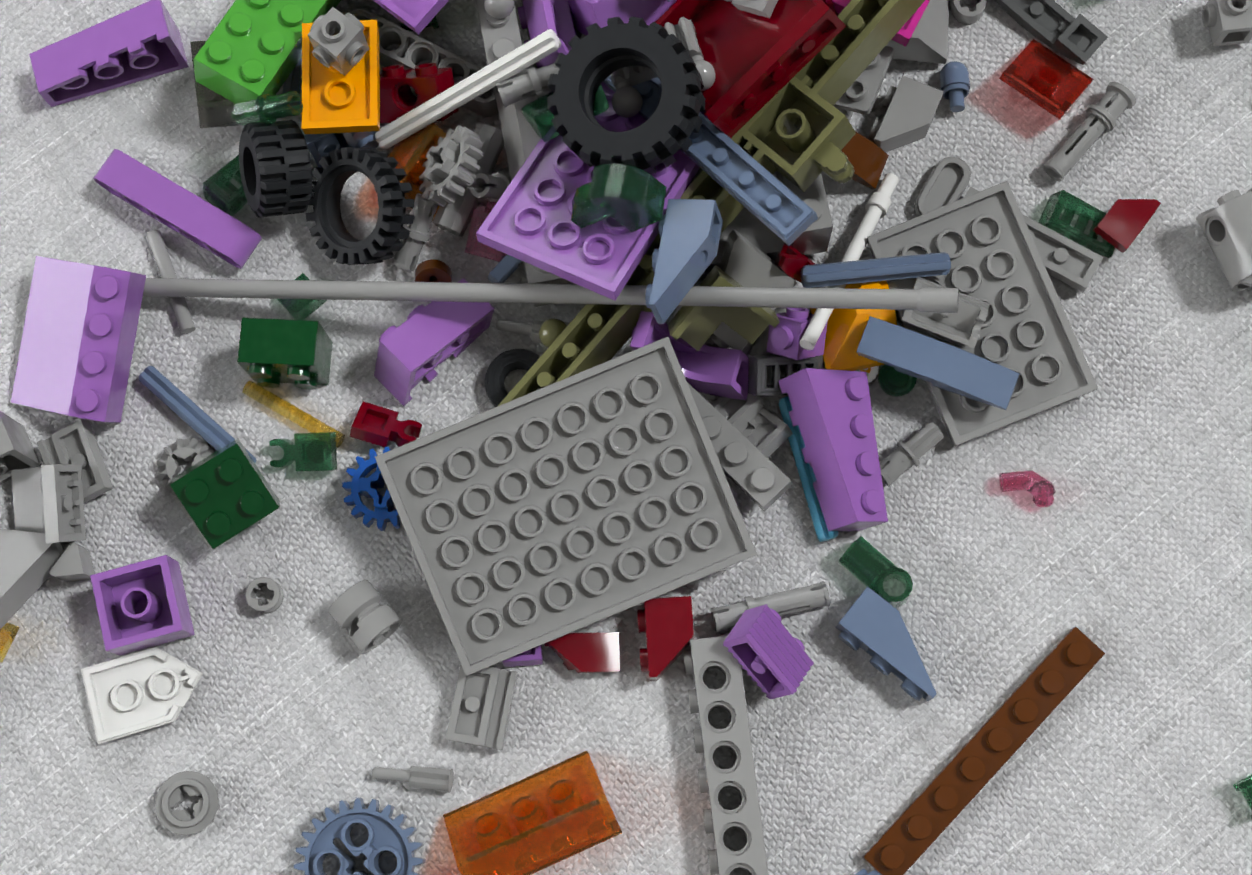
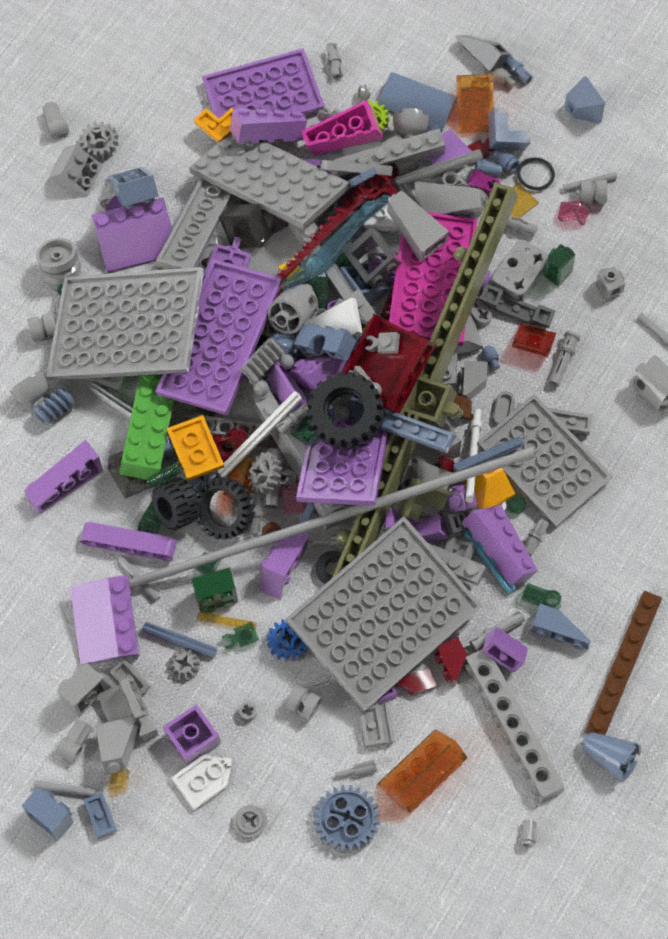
camera: 25 degrees left, 10 degrees down
(225, 493) = (211, 667): dark green piece -> none
(338, 40) = (191, 430): light grey brick -> none
(380, 426) = (273, 611): dark red plate -> none
(619, 192) = (359, 454): brick -> none
(687, 247) = (400, 471): sand blue slope -> none
(938, 363) = (533, 489): sand blue slope -> none
(959, 326) = (535, 466): light grey hinge -> none
(1031, 482) = (595, 531): clear pink arm -> none
(1086, 212) = (568, 395): clear green slope -> none
(1126, 221) = (596, 395): dark red slope -> none

